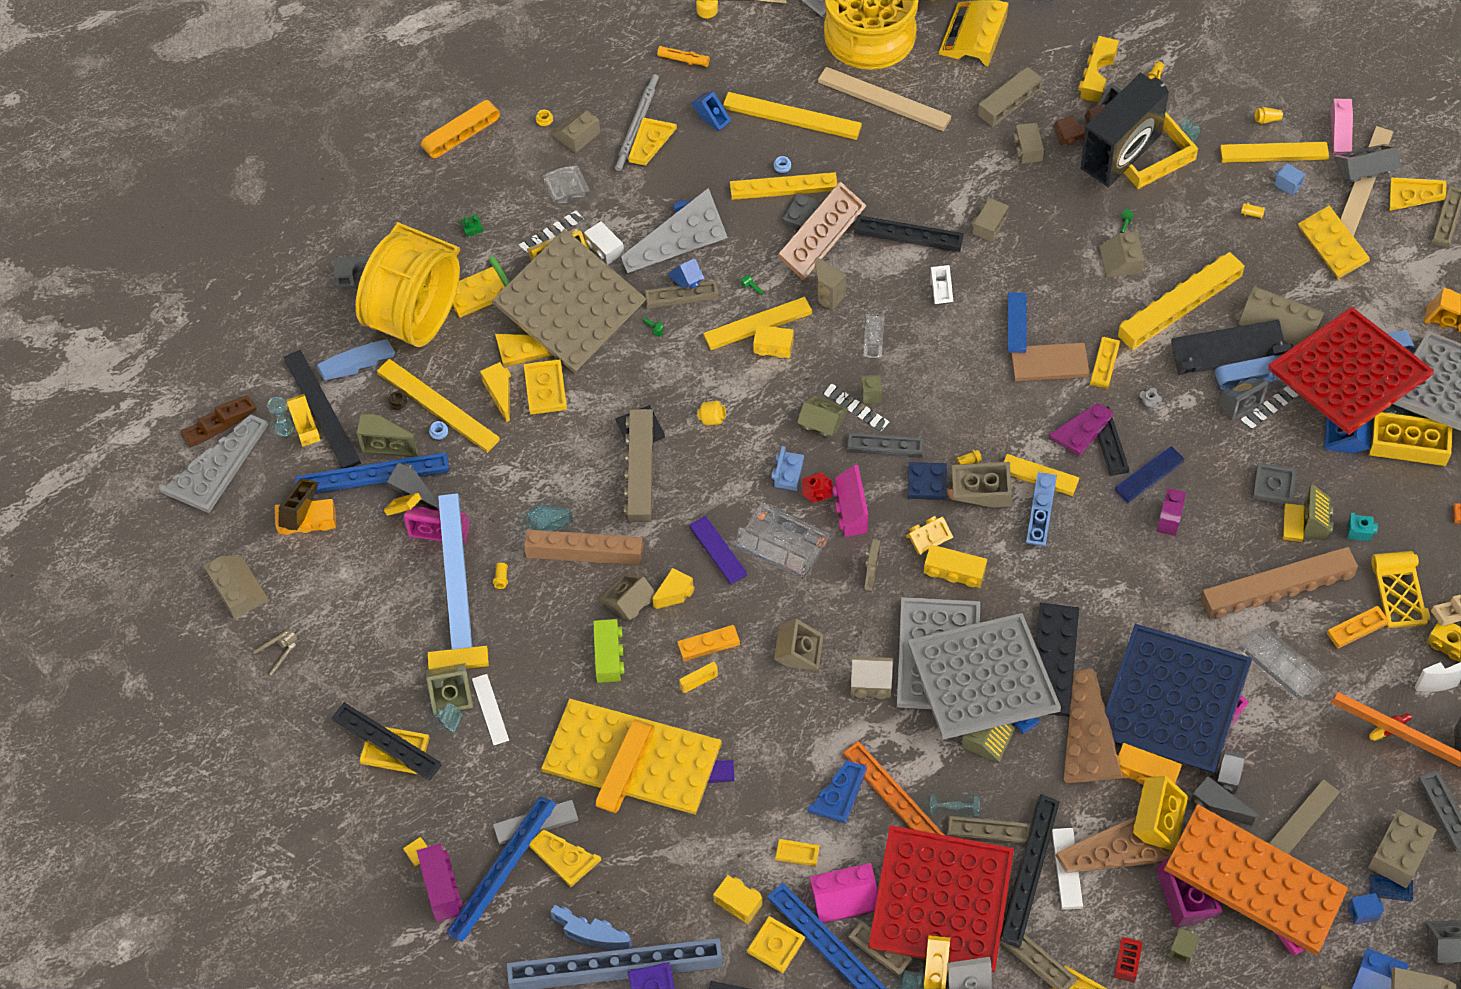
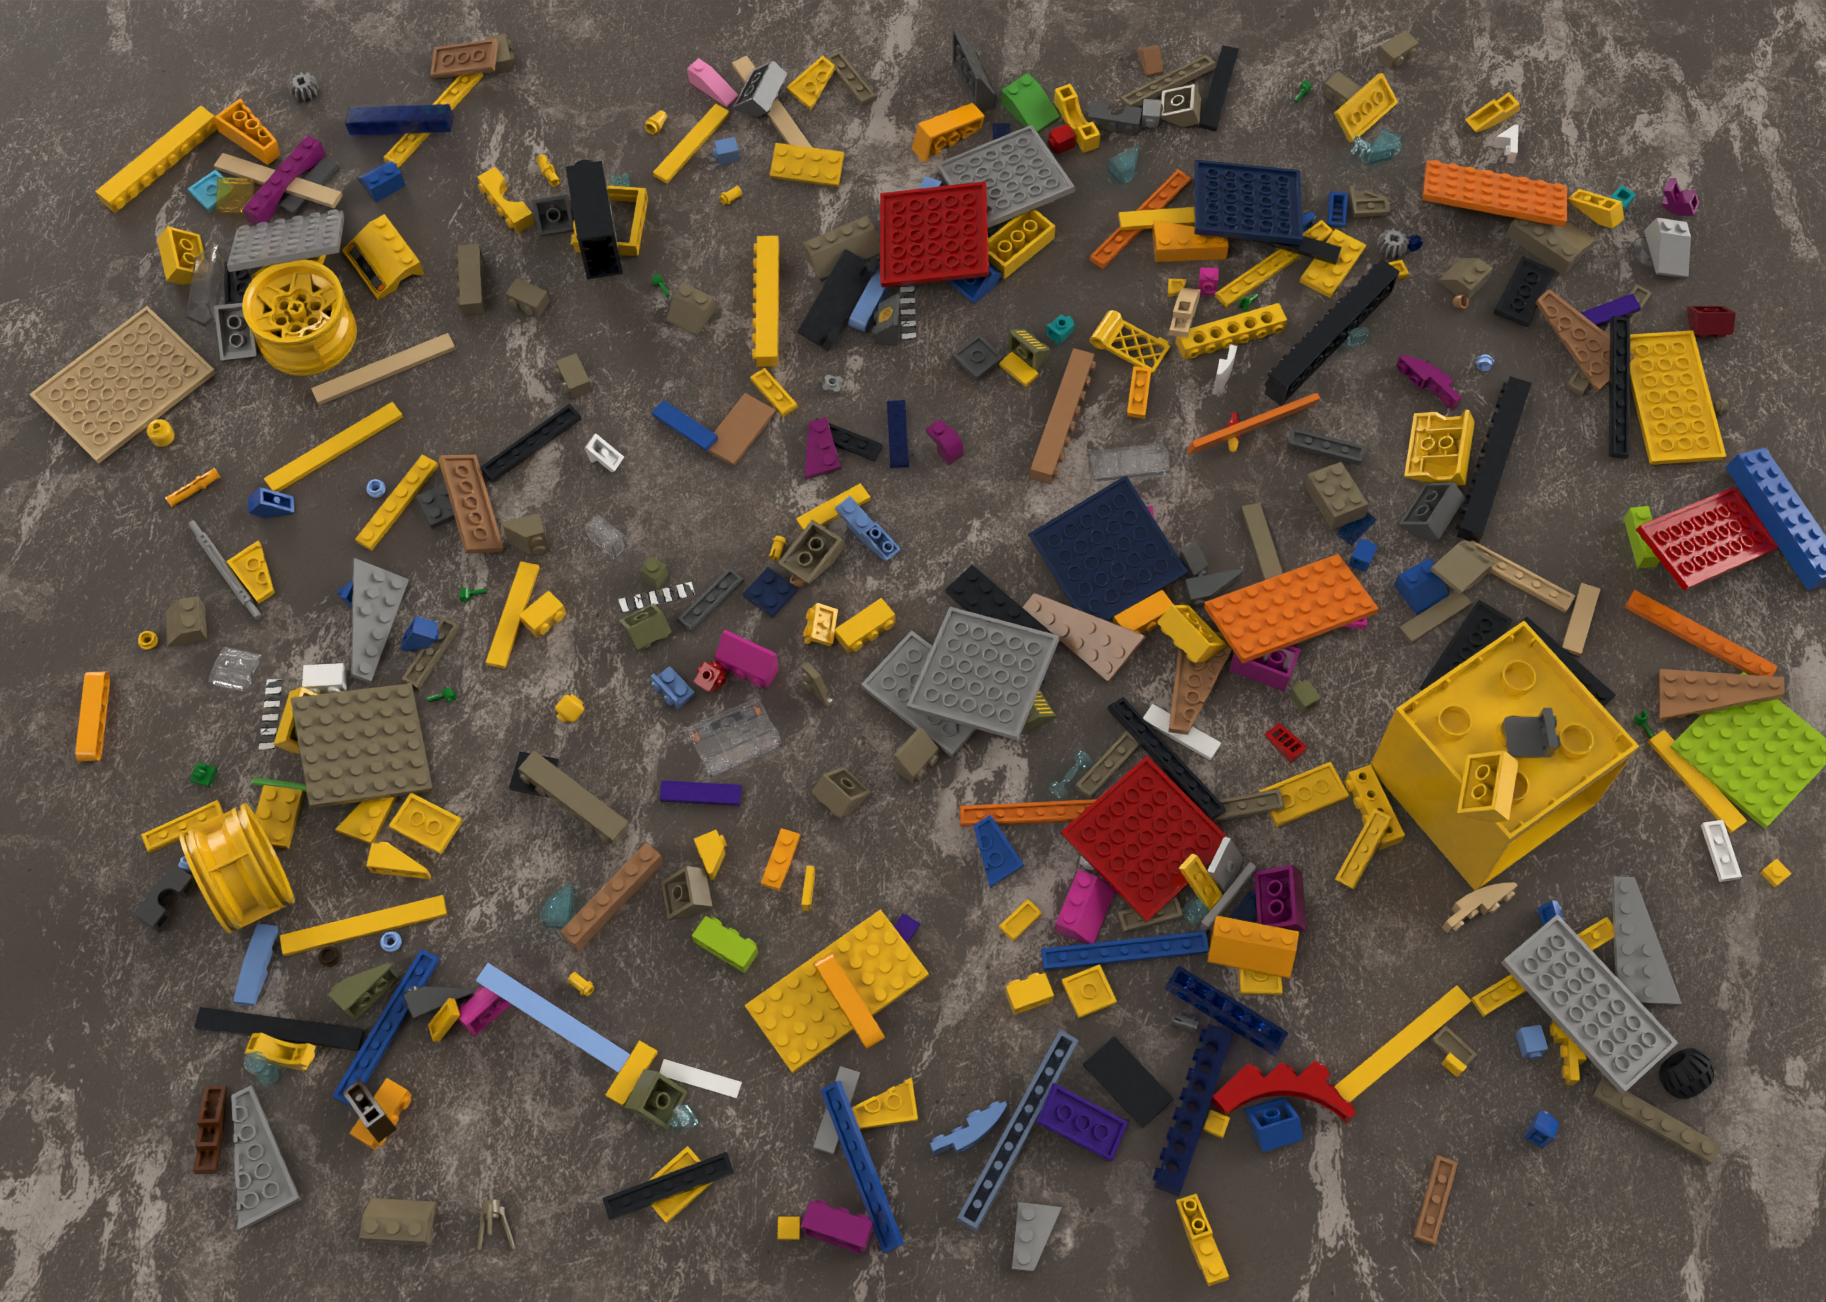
camera: 55 degrees left, 5 degrees up
(1069, 131) = (543, 260): reddish brown arch -> none

